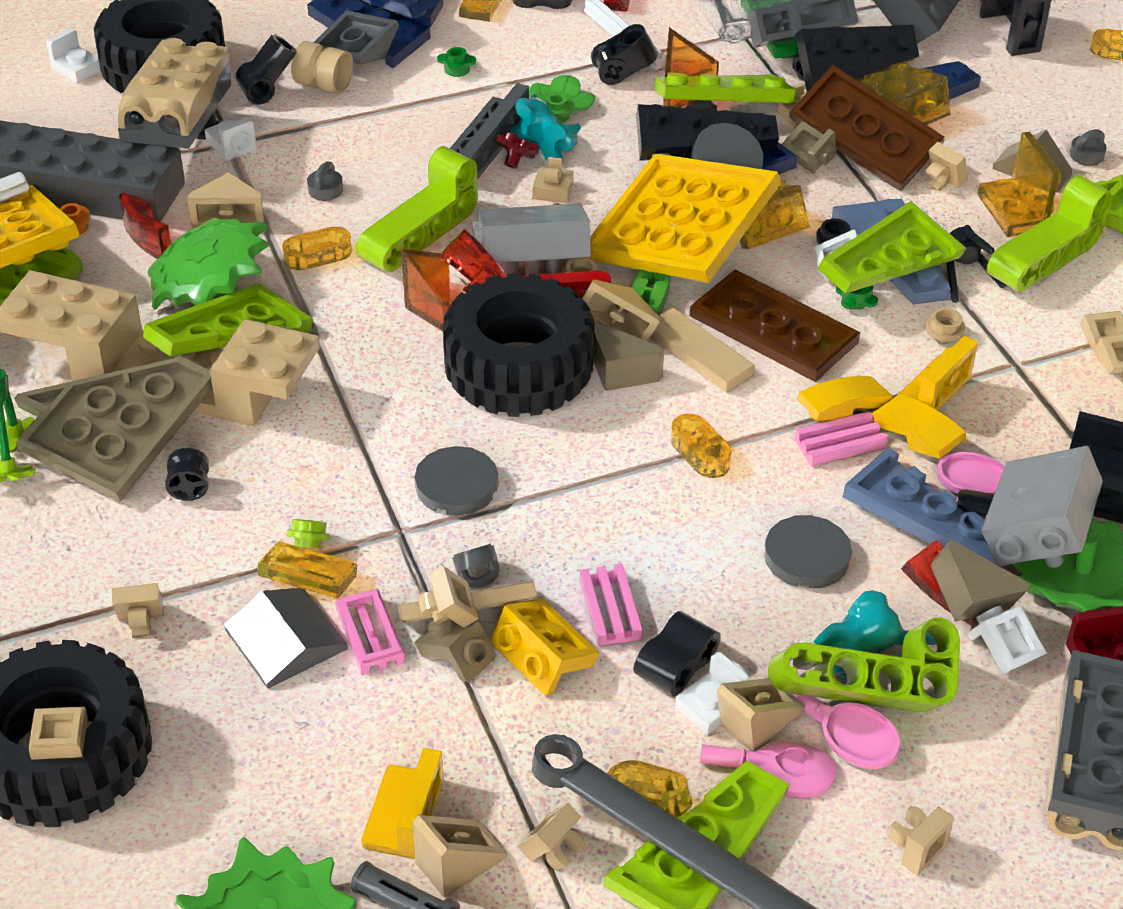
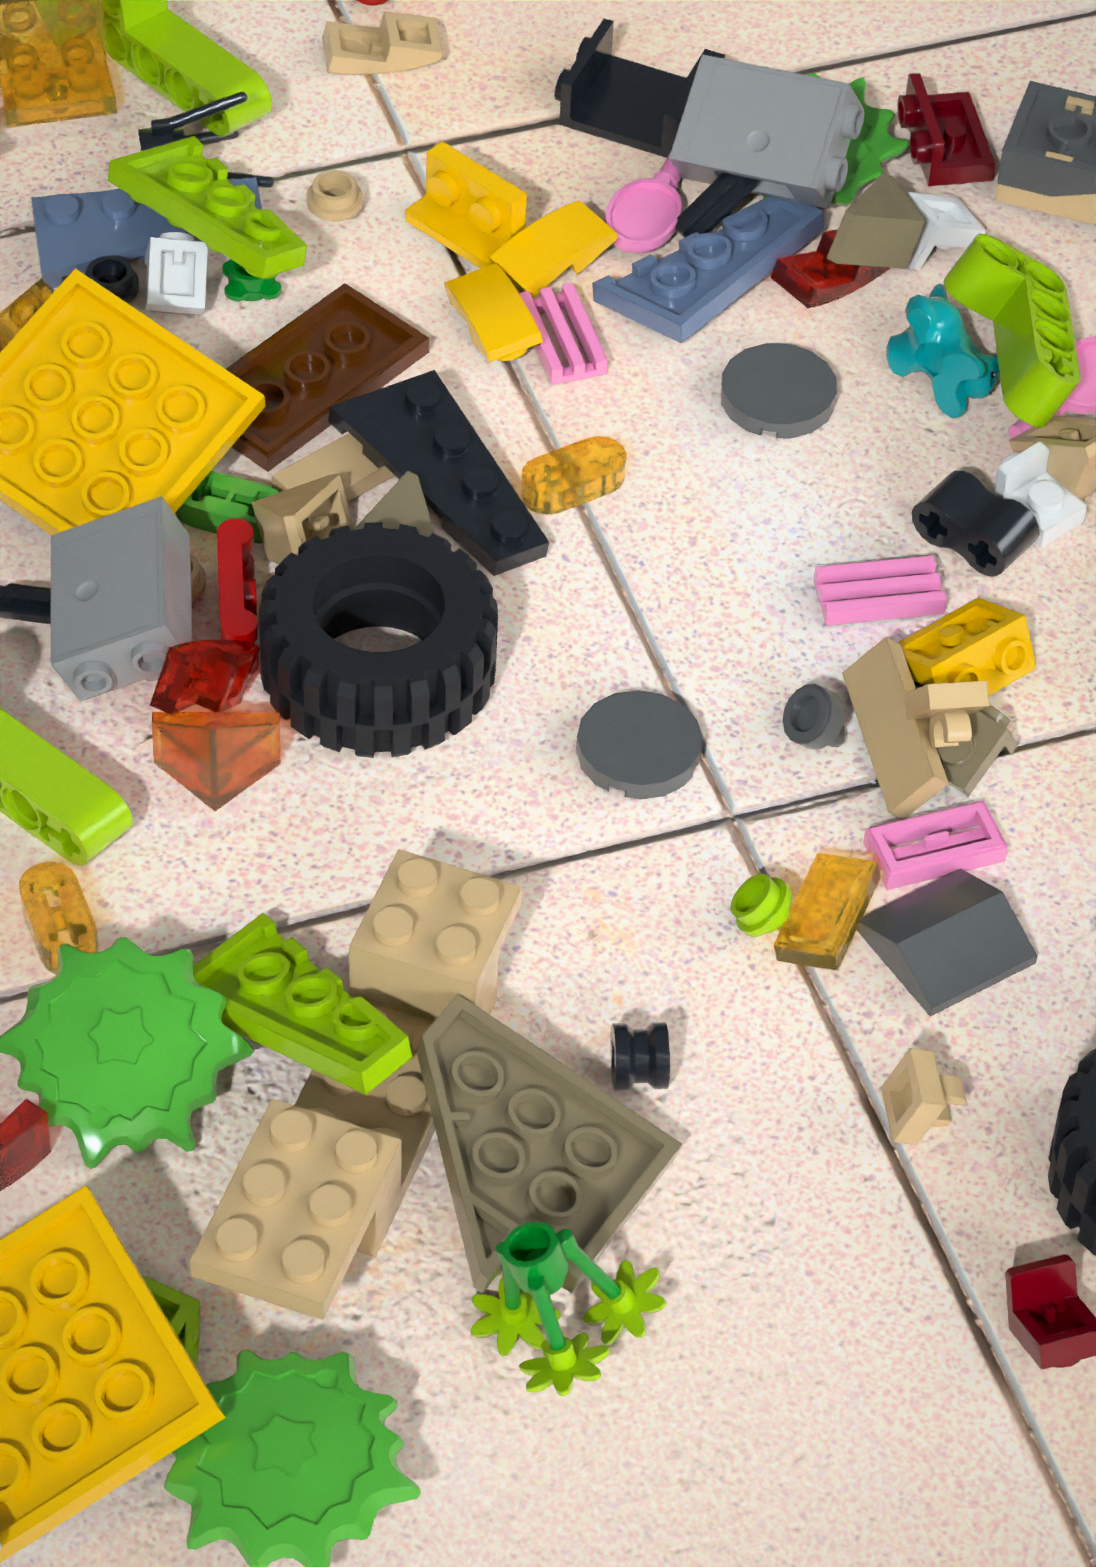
camera: 90 degrees left, 5 degrees up
(691, 374) = (425, 432): none -> black wing

